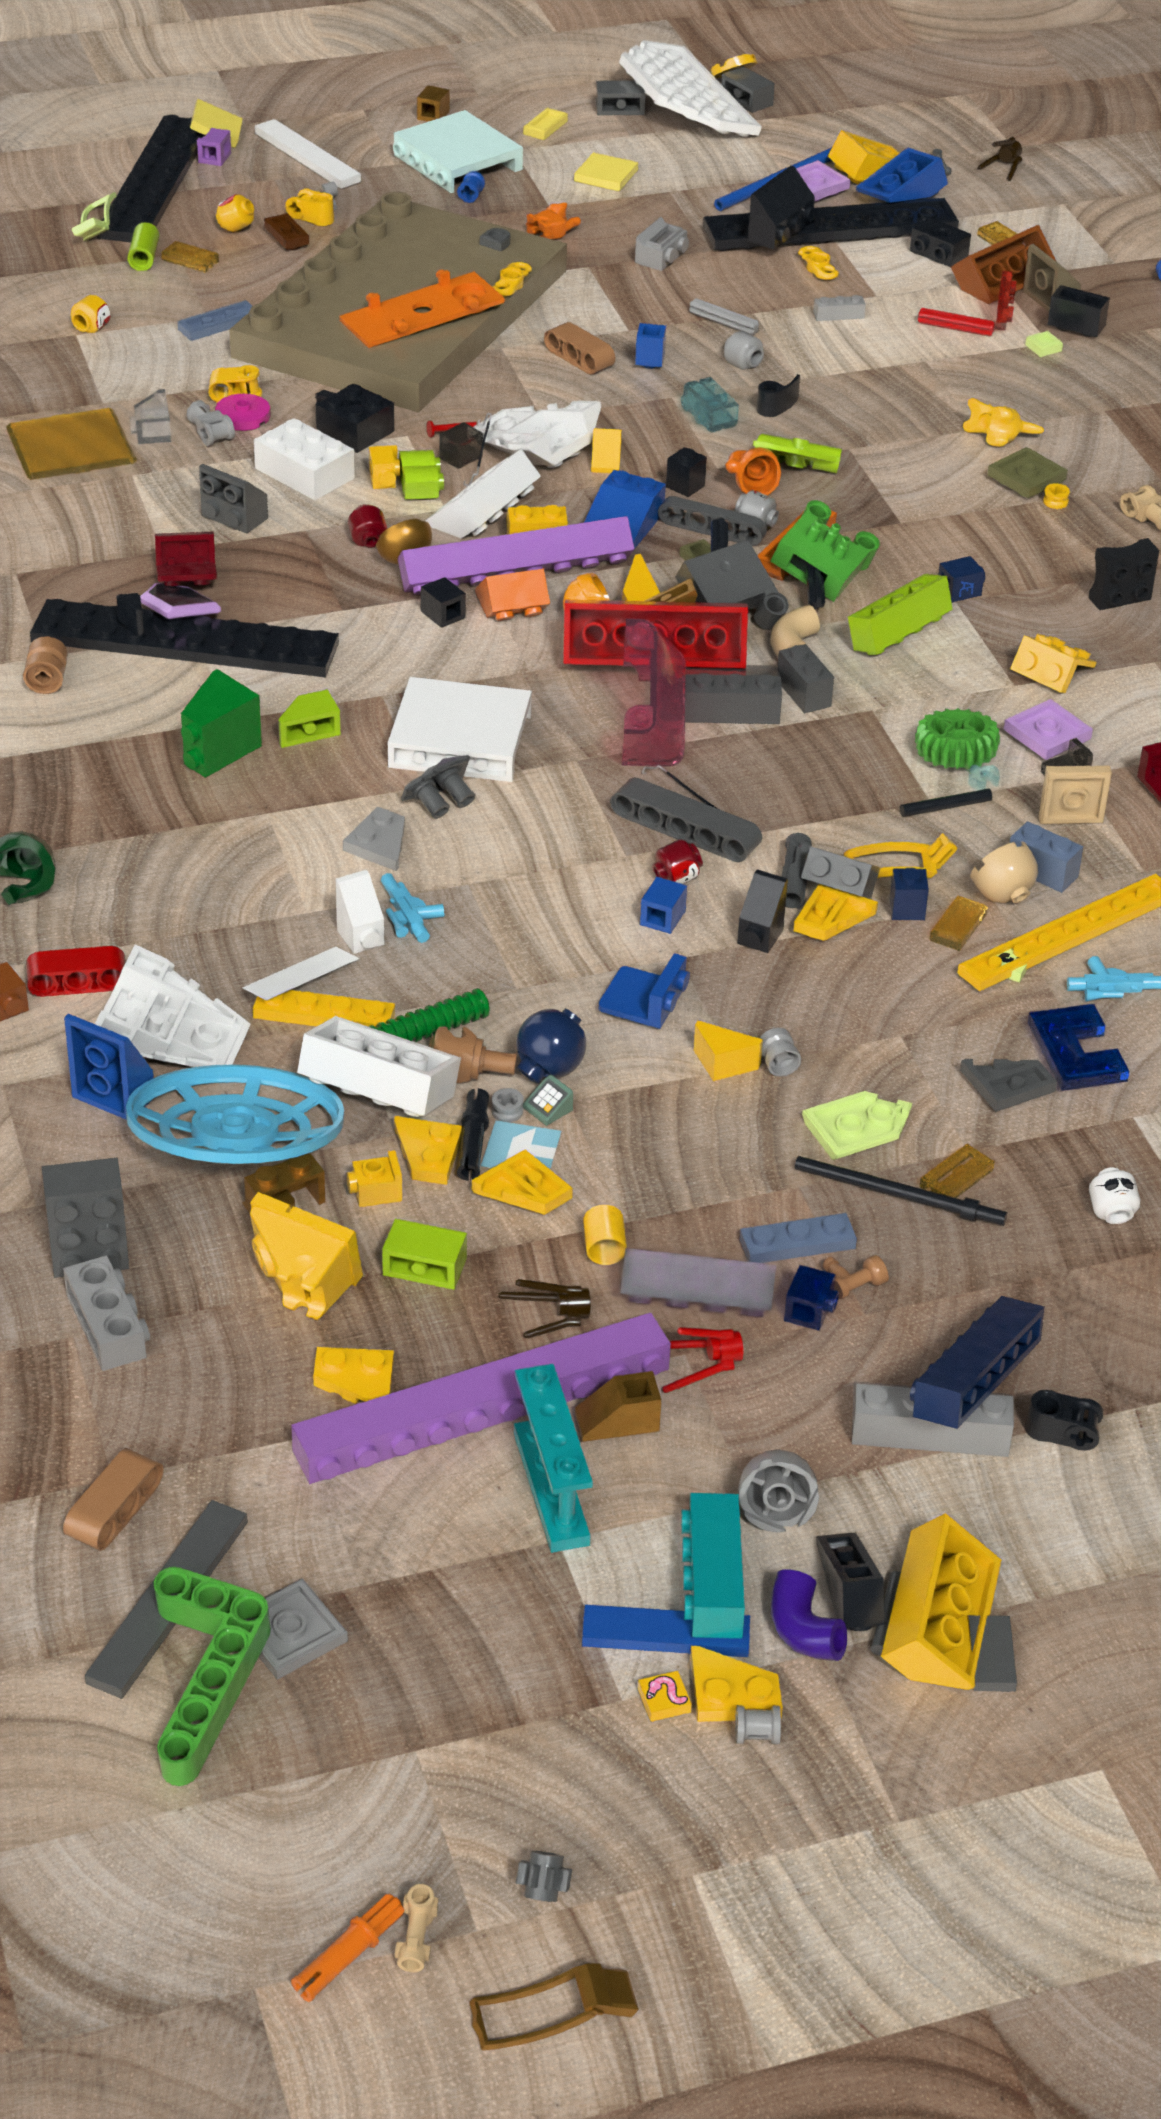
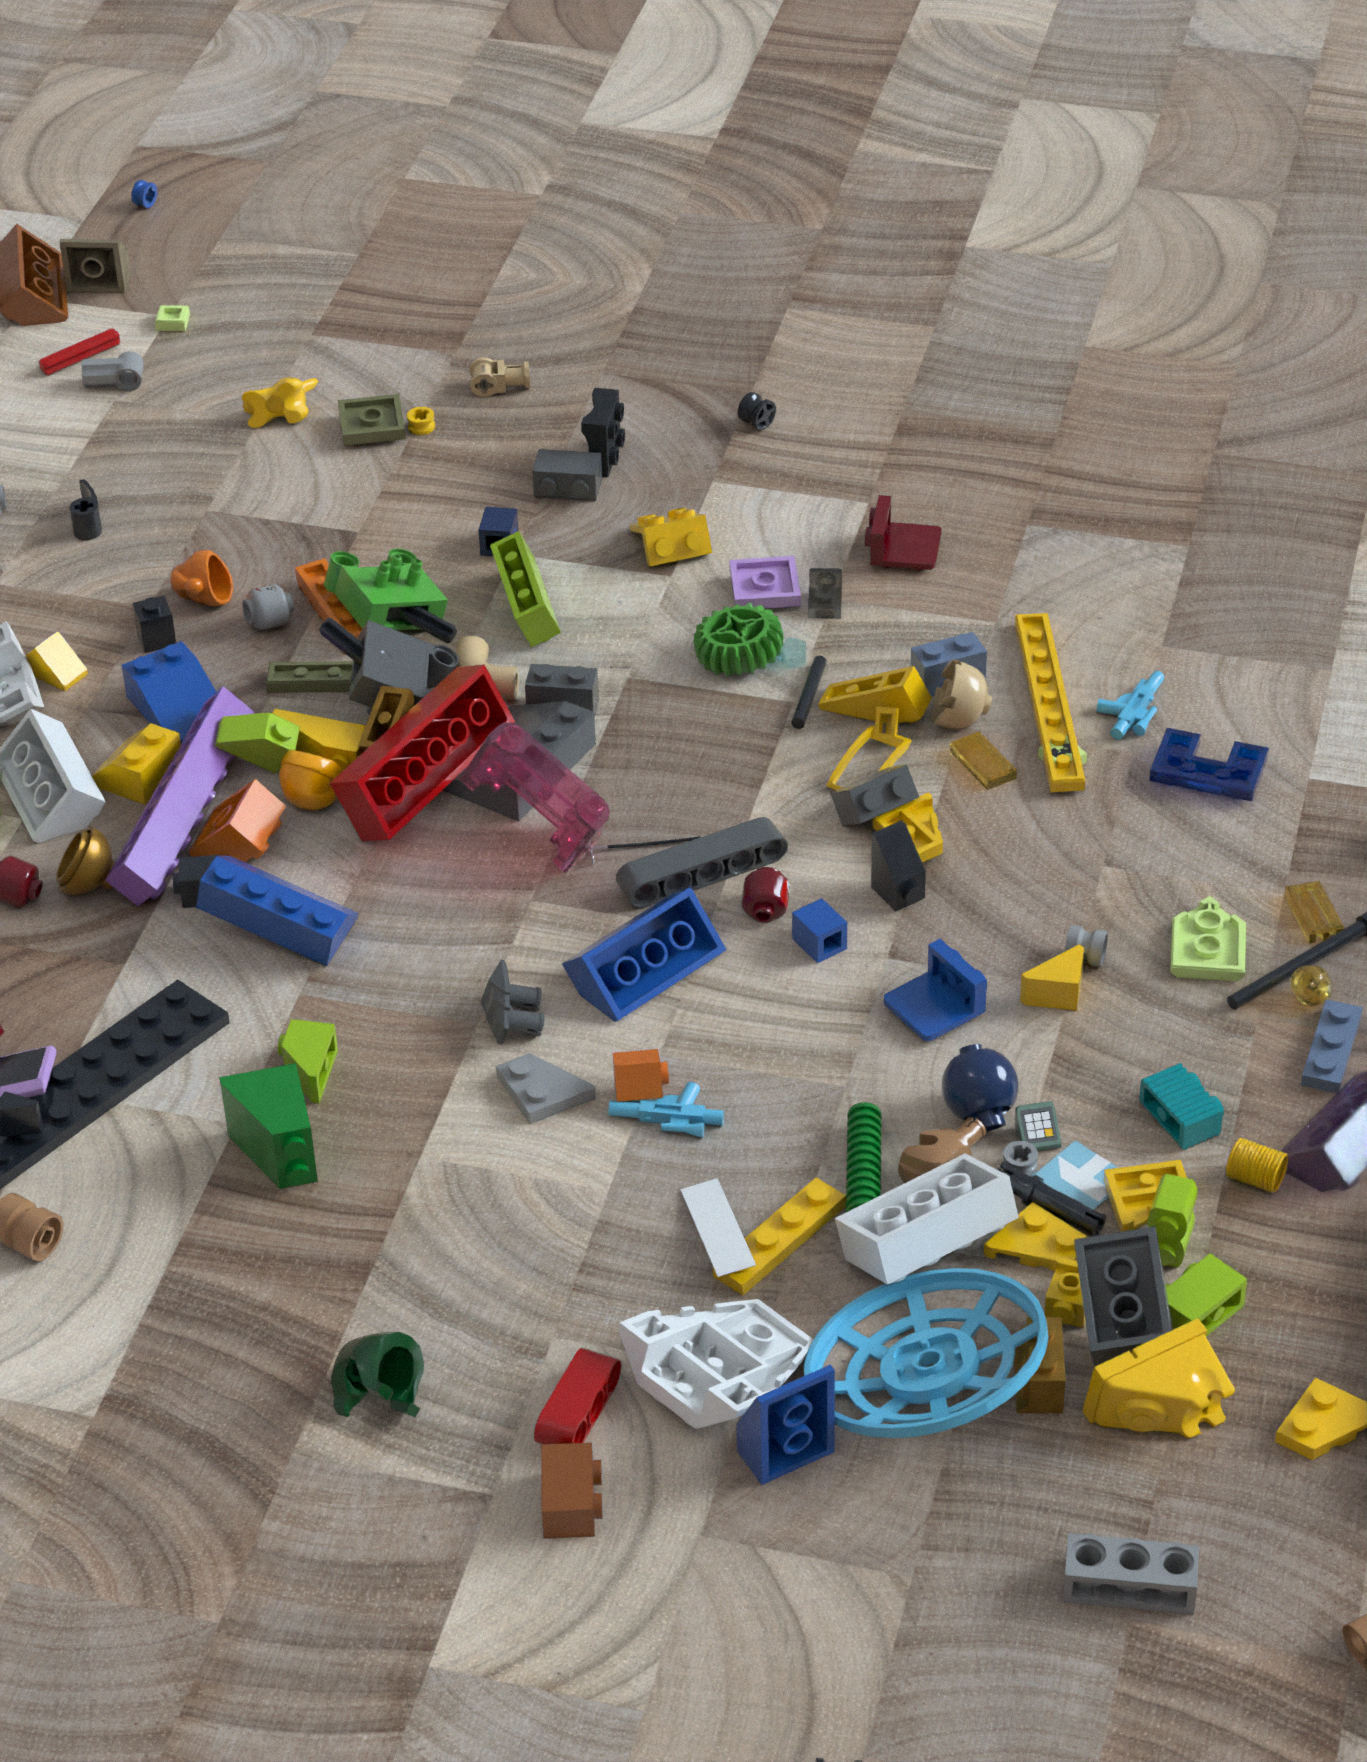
camera: 55 degrees left, 0 degrees up
(85, 1213) = (1024, 1522): dark grey brick -> none
(359, 912) = (678, 1144): white slope -> none
(369, 1192) = (1122, 1291): none -> dark grey slope
(419, 872) = (639, 1075): none -> orange brick
(438, 631) = (274, 909): none -> blue slope
(458, 720) = (428, 952): white panel -> none
(483, 1198) = (1173, 1217): none -> lime brick
(555, 829) = (645, 955): none -> blue slope
(570, 1301) = (1328, 1230): dark brown plant -> none
(601, 557) = (257, 738): none -> lime slope
(639, 1169) = (1182, 1105): none -> teal brick
(686, 520) = (283, 630): dark grey beam -> none
(710, 404) = (53, 560): clear light blue brick -> none
(795, 858) = (838, 827): dark grey piece -> none
(801, 452) = (197, 537): lime pin -> none
(851, 1197) = (1311, 985): none -> clear yellow piece
(909, 894) = (934, 768): dark blue brick -> none
(947, 344) = (114, 371): none -> light grey piece
(970, 834) = (894, 689): none -> yellow slope
(1006, 296) = (94, 297): clear red plate -> none
(1009, 1081) = (1223, 825): dark grey wing -> none
(1066, 584) = (567, 474): none -> dark grey brick
(1074, 794) = (891, 605): tan tile -> none
(1078, 311) = (162, 271): black brick -> none

